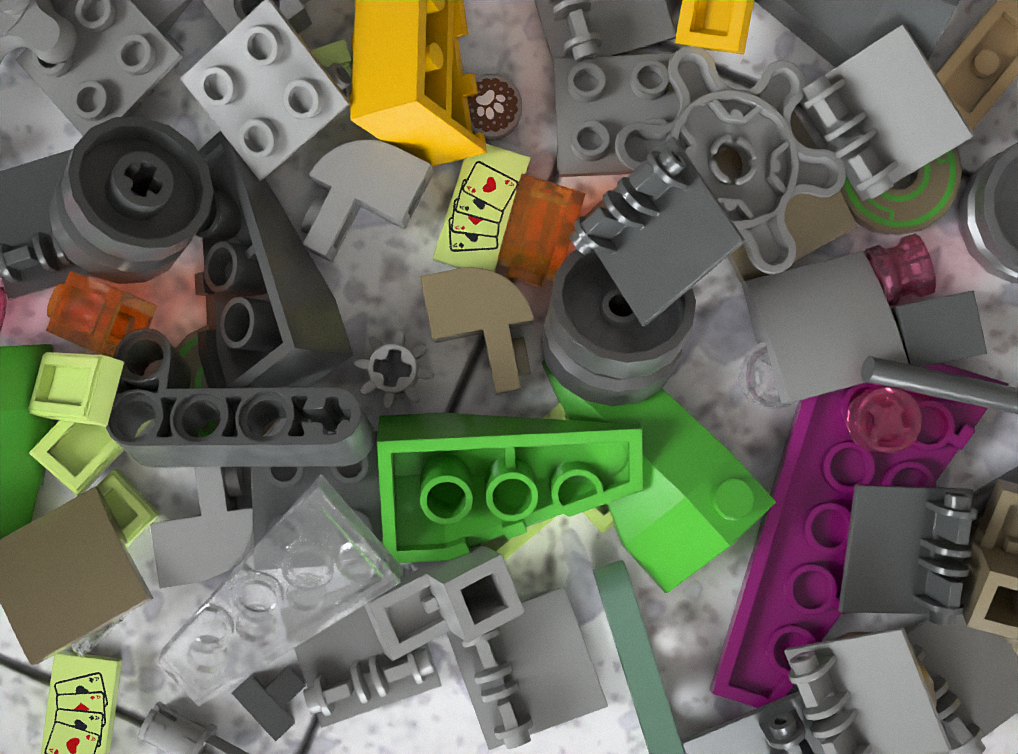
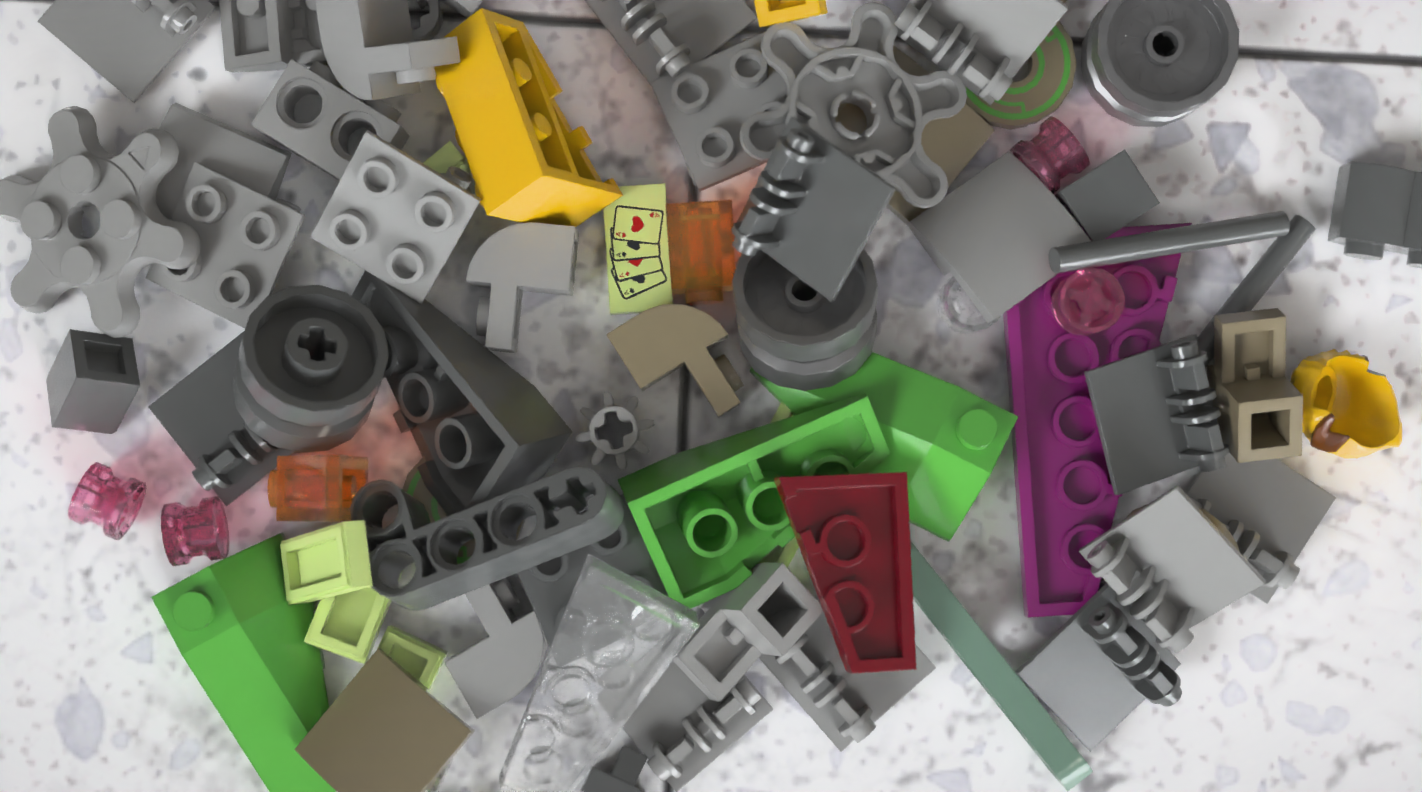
camera: 25 degrees left, 0 degrees up
(496, 106) = (614, 148): tile -> none
(574, 582) = (859, 561): none -> dark red wing

